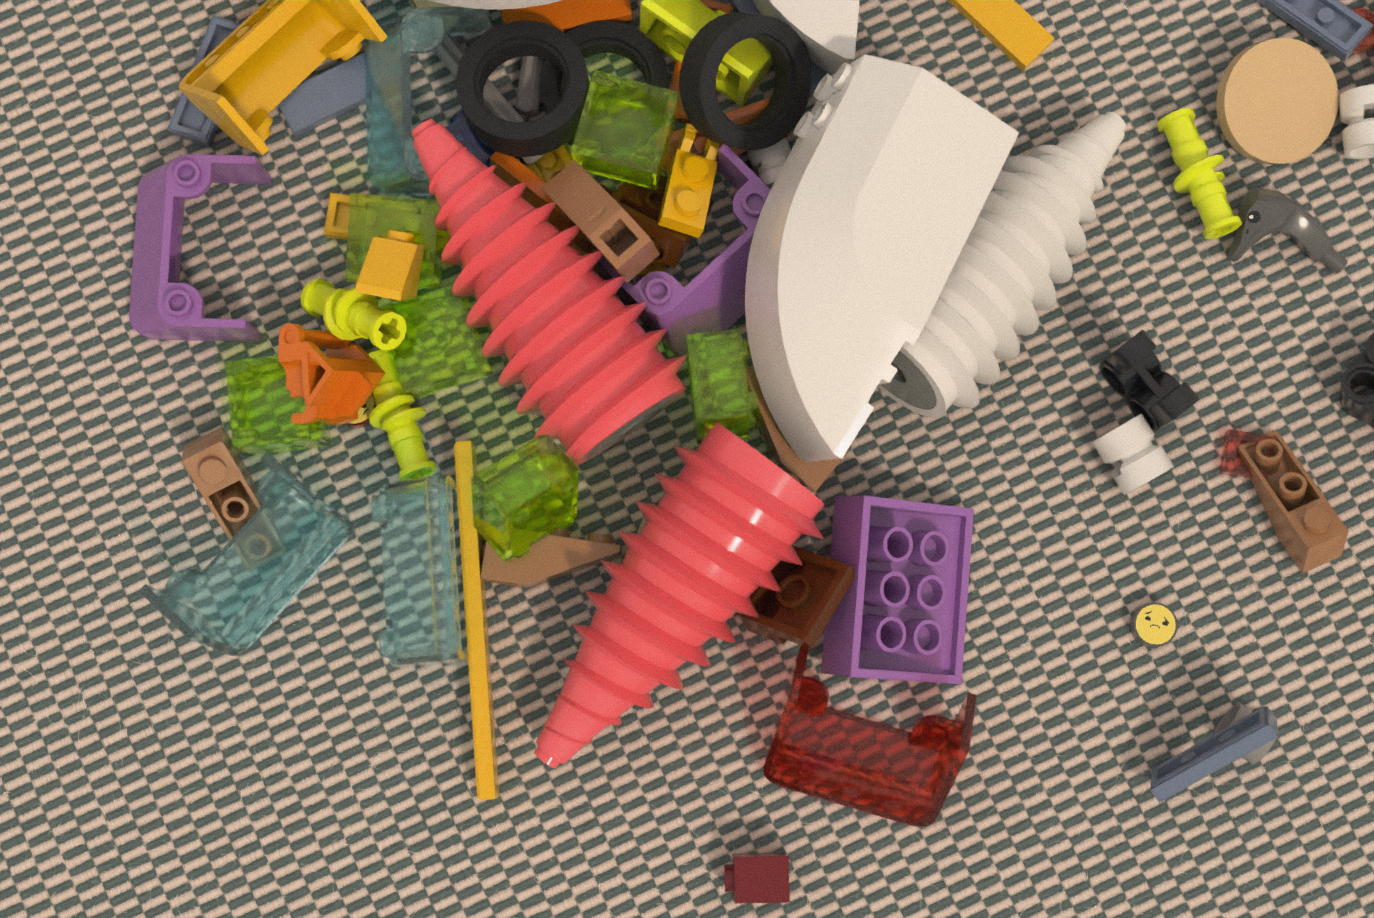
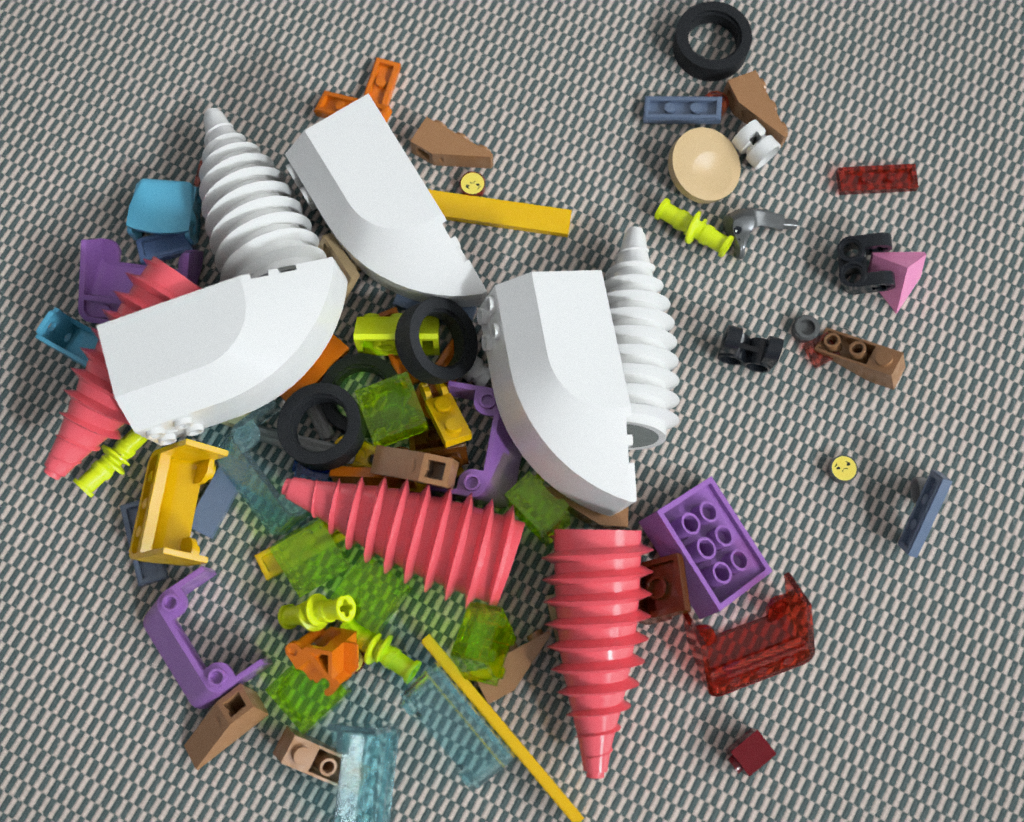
camera: 35 degrees left, 5 degrees down
(153, 369) = (225, 724): none -> medium nougat slope
(392, 266) = (322, 572): yellow slope -> none
(1133, 454) = (768, 390): white wheel -> none
(1247, 411) = (805, 328): none -> dark grey tile

